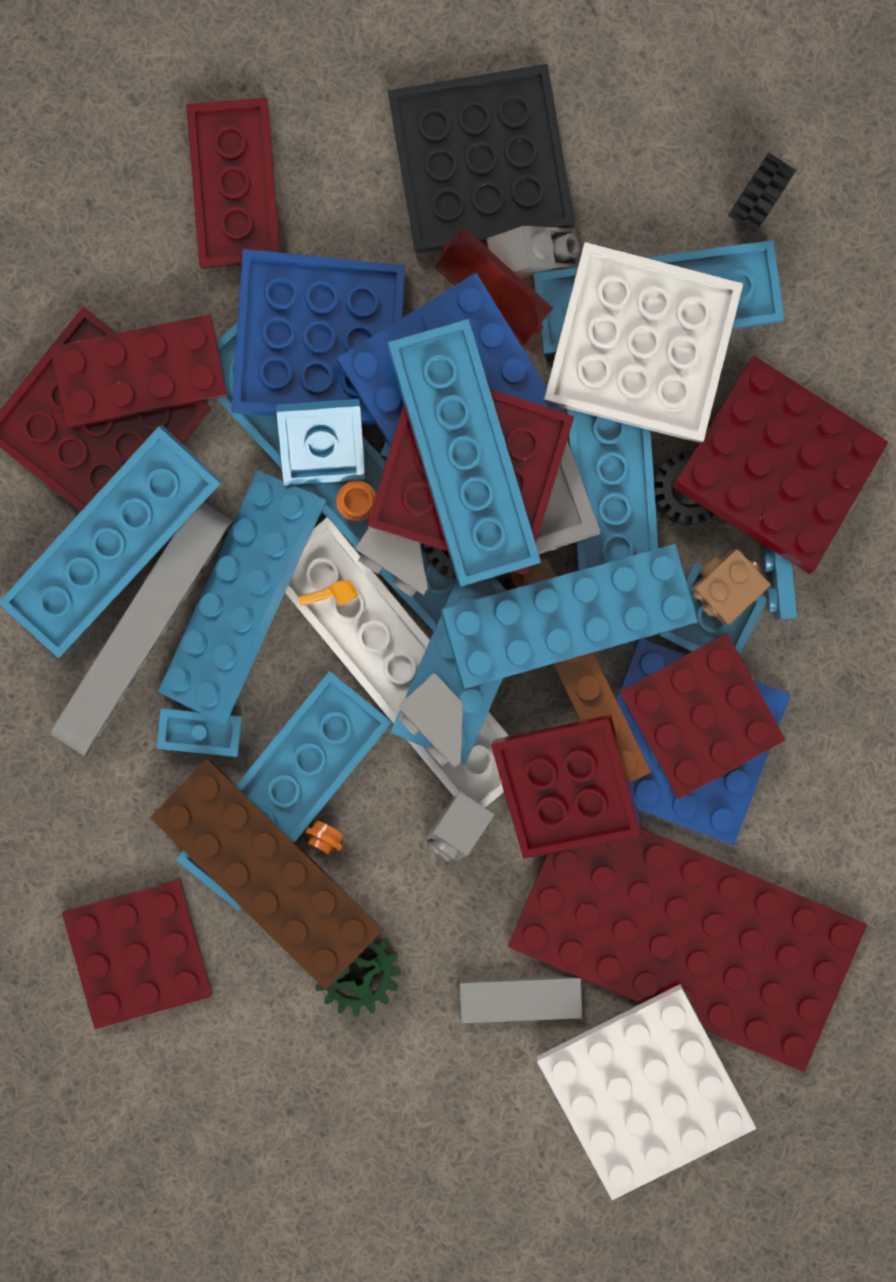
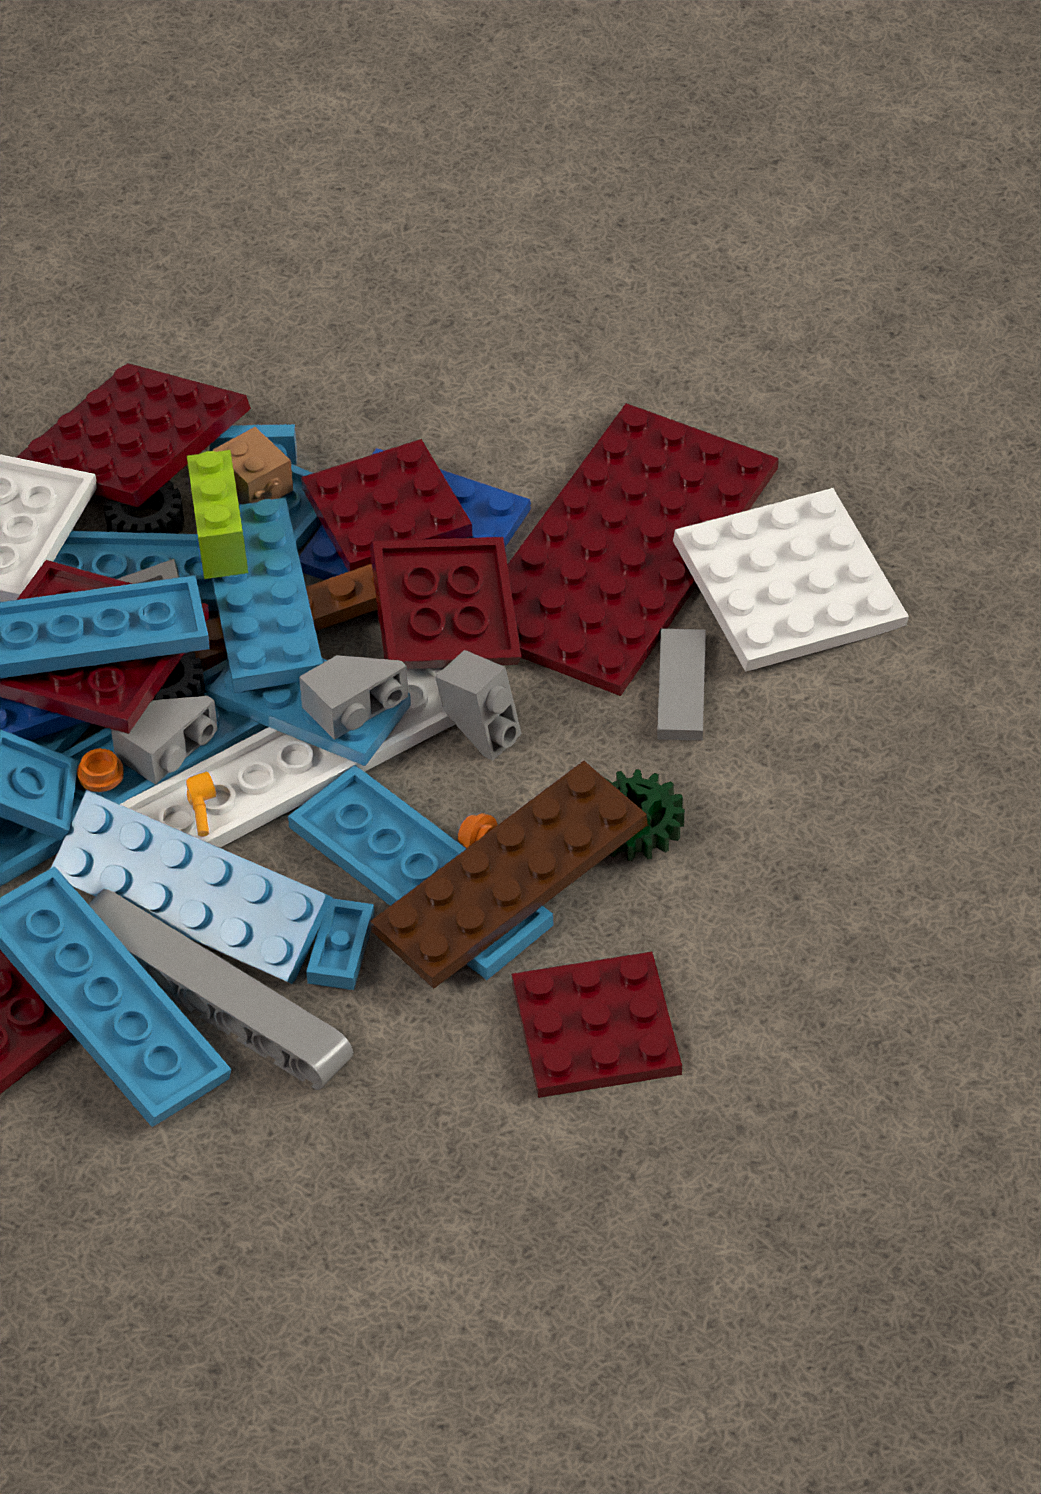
camera: 85 degrees left, 40 degrees down
(640, 567) = (217, 514): none -> lime brick

